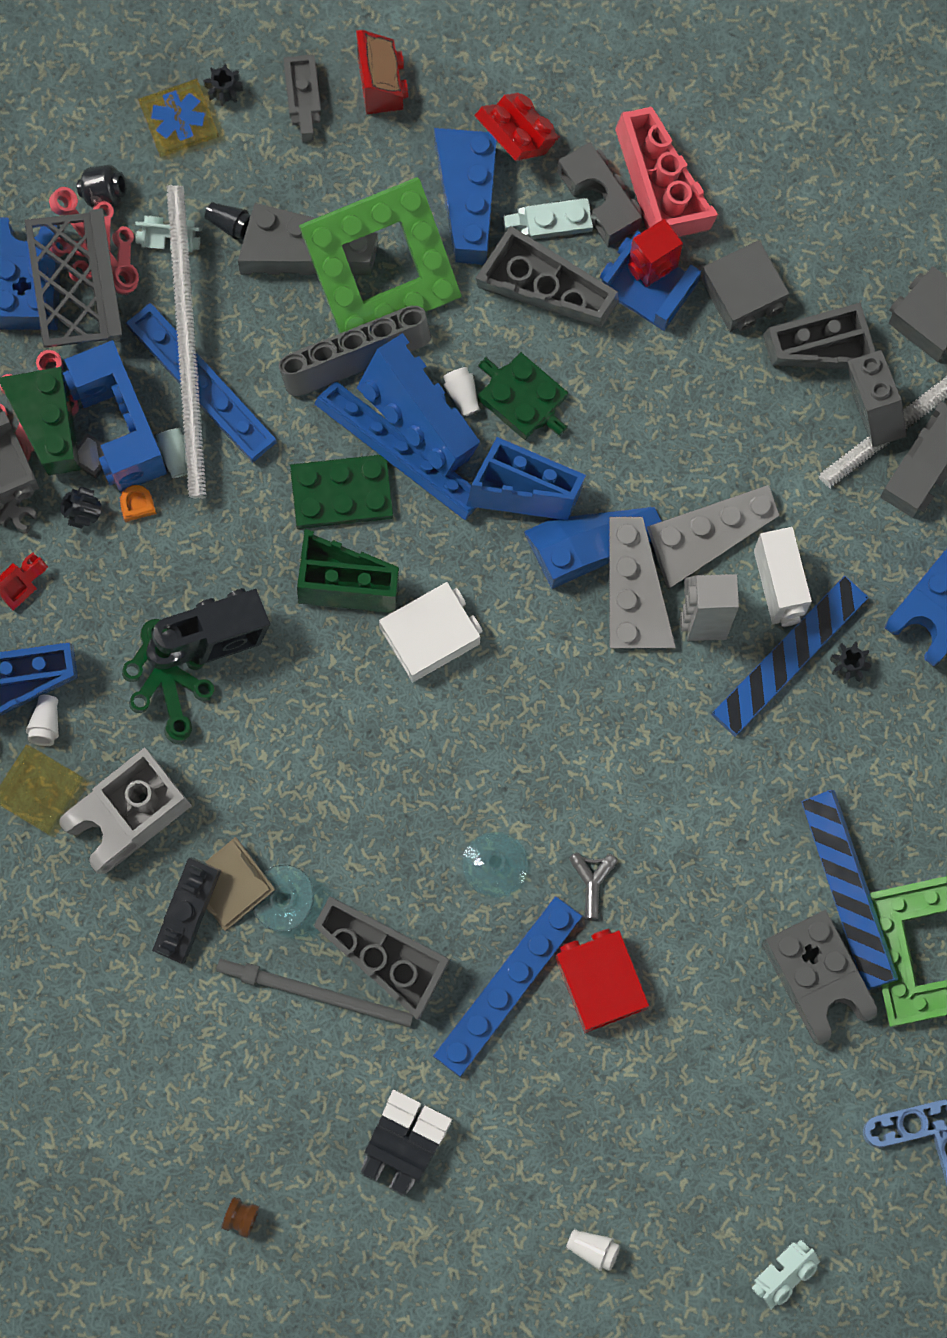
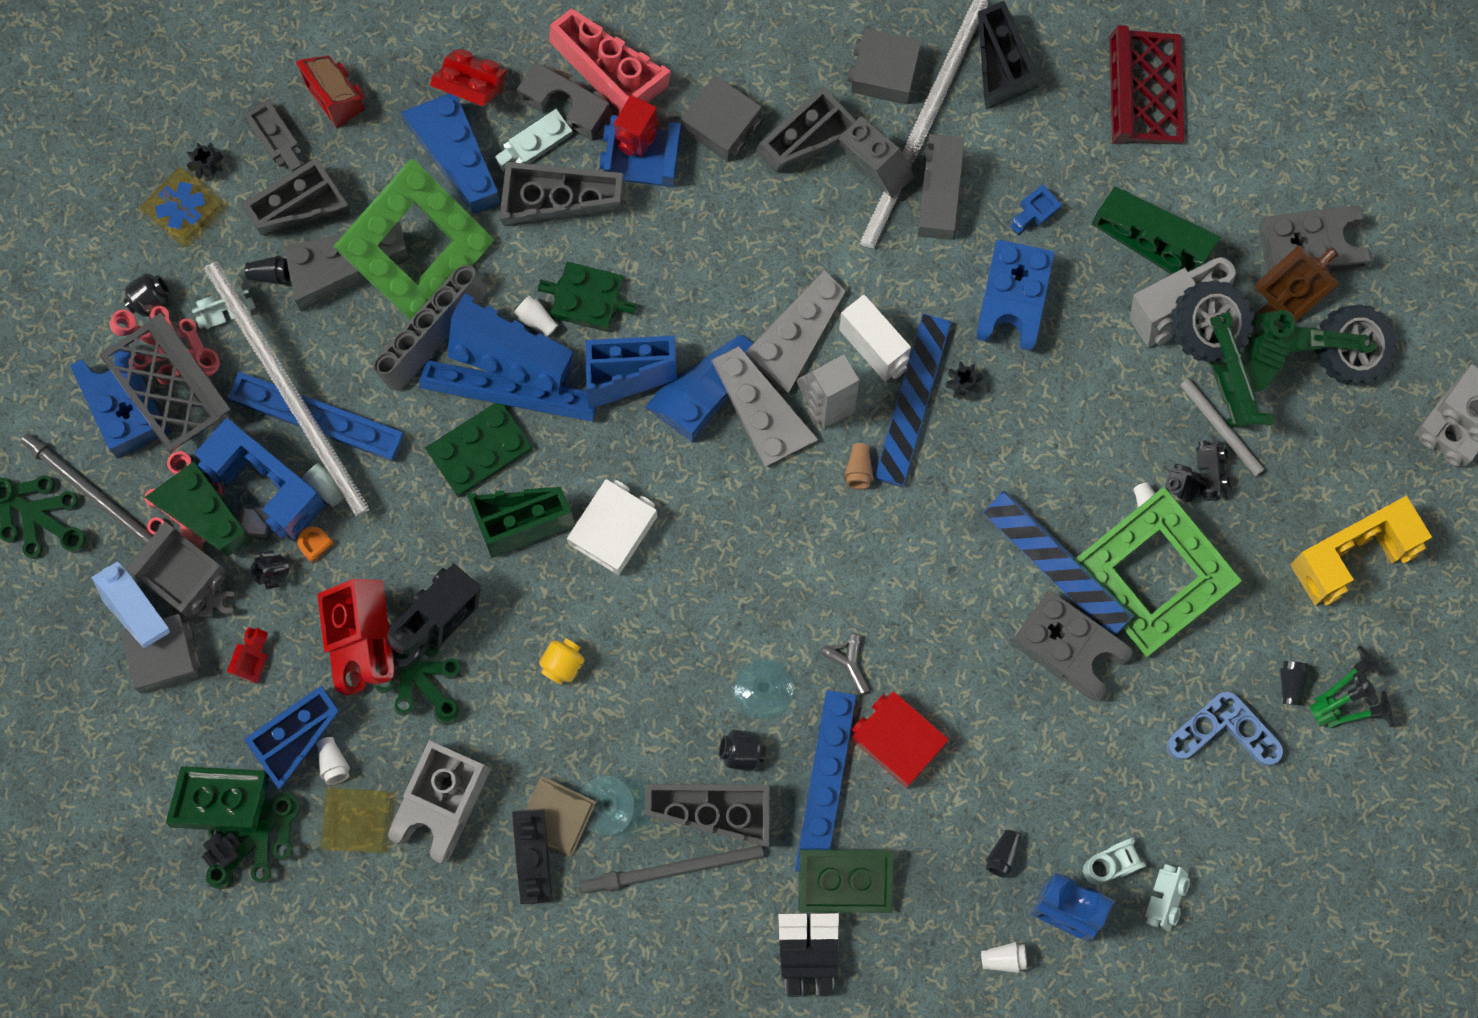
camera: 25 degrees left, 0 degrees up
(128, 608) = (356, 633): none -> red brick
(289, 164) = (296, 200): none -> dark grey wedge
(313, 737) = (561, 661): none -> yellow head
(442, 913) = (742, 750): none -> black head
(476, 1091) = (845, 880): none -> dark green plate
(645, 1148) = (1004, 854): none -> black cone
(683, 1232) = (1072, 907): none -> blue brick
(701, 696) = (859, 468): none -> medium nougat cone
(757, 1212) = (1118, 861): none -> light aqua piece

